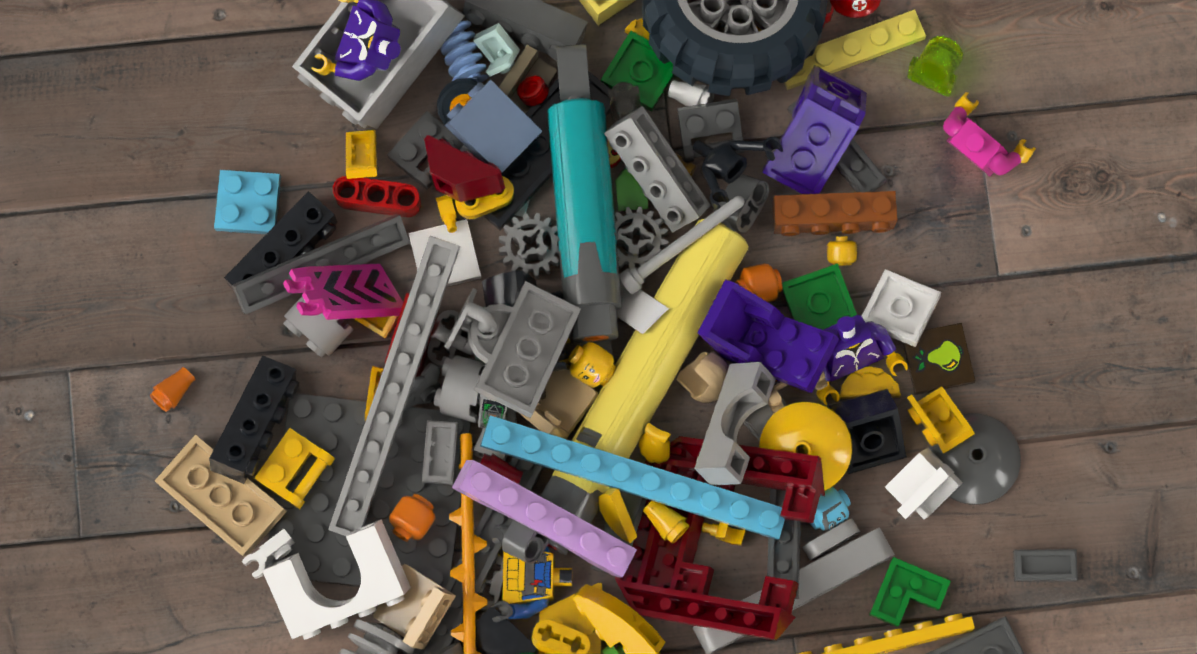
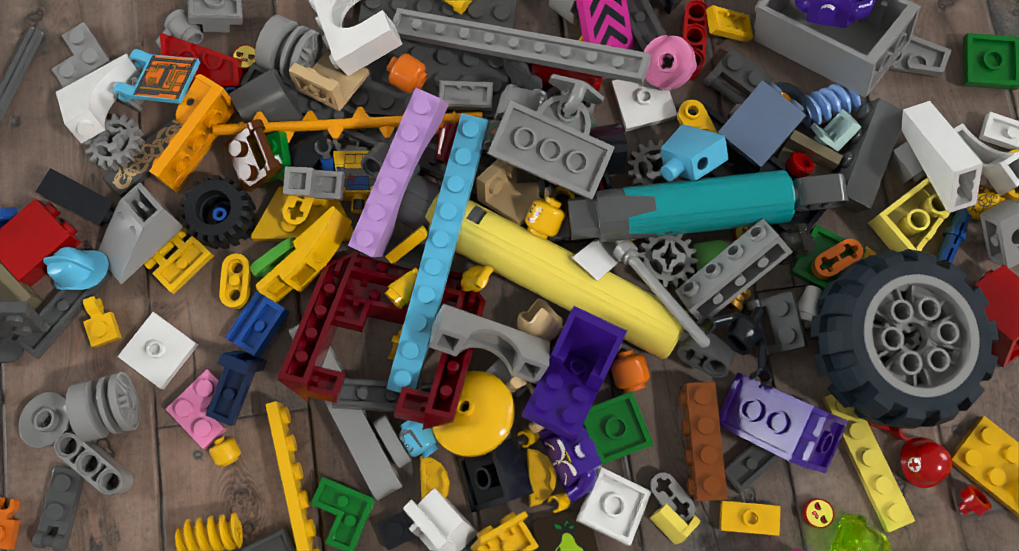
camera: 90 degrees right, 0 degrees up
(394, 216) = (683, 64): none -> bright pink plate
(447, 212) = (681, 96): yellow piece -> none
(460, 173) = (717, 97): dark red slope -> none
(526, 203) = (692, 153): none -> medium azure torso
(545, 620) = (314, 183): none -> light grey slope
(648, 58) = (839, 264): none -> orange beam
(842, 251) = (667, 450): yellow piece -> none
(873, 497) = (433, 476): none -> yellow tile
(886, 243) = (677, 493): none -> light grey beam
(906, 103) = (818, 513): none -> tile
(912, 171) = (749, 518): none -> yellow plate
(920, 248) = (672, 525): none -> light yellow tile
(925, 536) = (396, 530): none -> black plate

